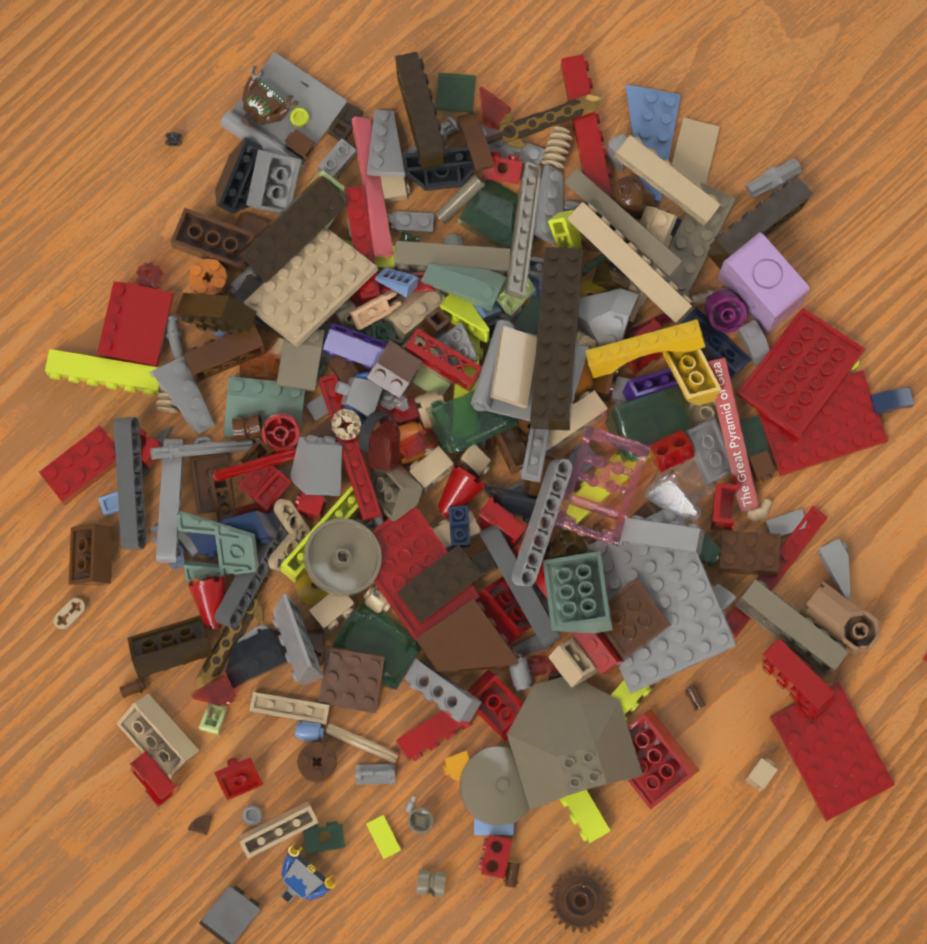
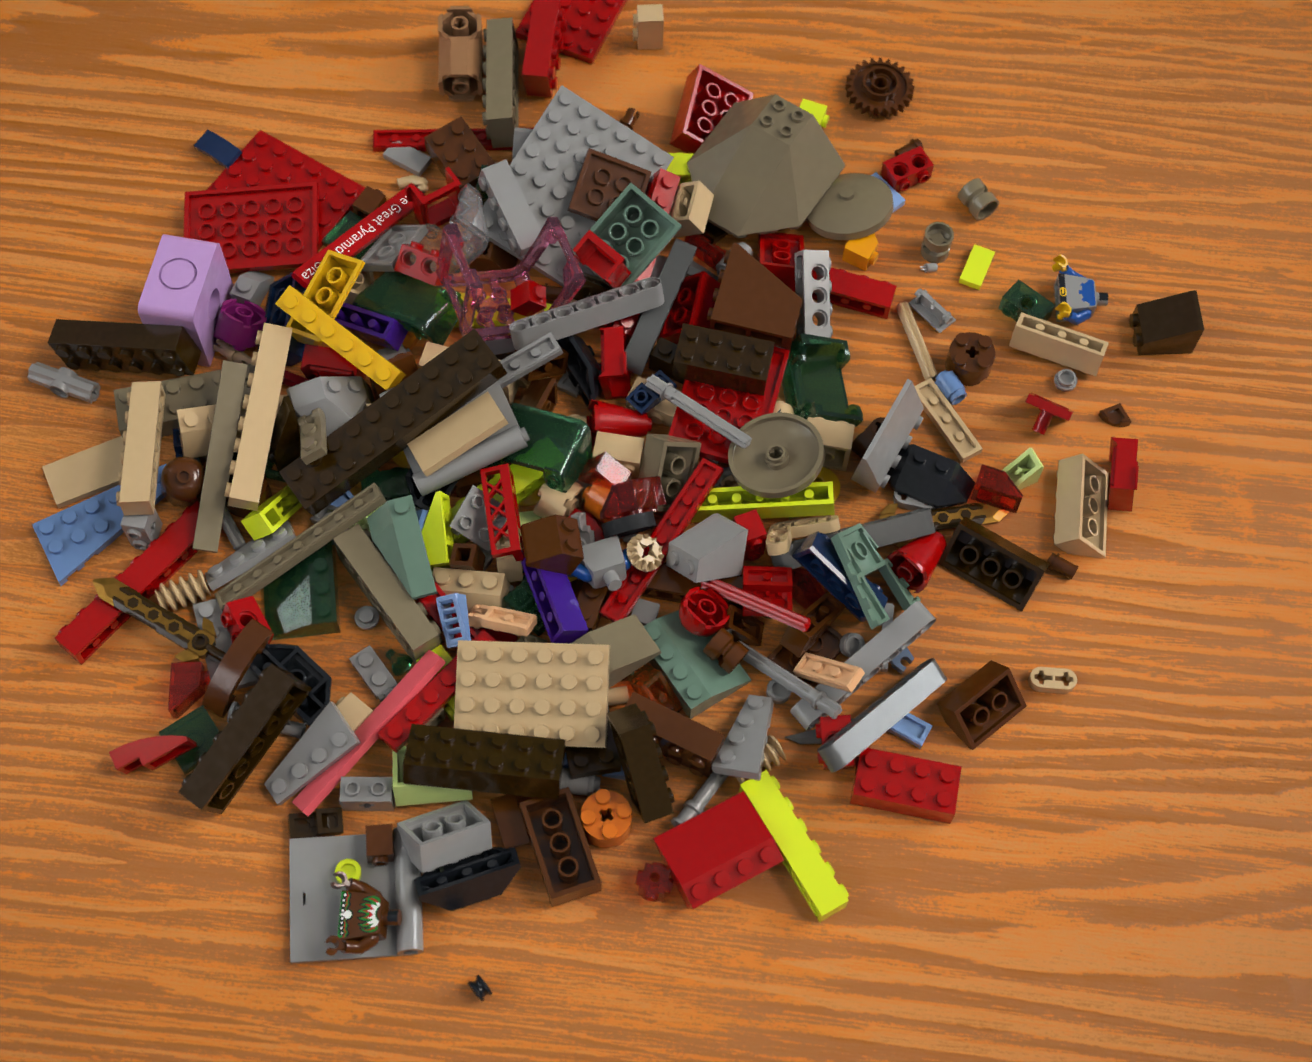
camera: 130 degrees left, 15 degrees down
(181, 473) = (828, 672): none -> light nougat tile
(193, 508) = (851, 643): none -> light grey tile
(351, 679) = (867, 383): reddish brown plate -> none
(415, 535) = (698, 411): none -> light grey axle
(460, 198) = (313, 638): dark tan piece -> none
(464, 60) = (150, 752): none -> red slope
(569, 559) = (601, 259): none -> red piece
(586, 282) = (313, 436): none -> dark tan plate
(588, 497) = (528, 298): none -> red brick
(836, 562) = (412, 93): light grey slope -> none

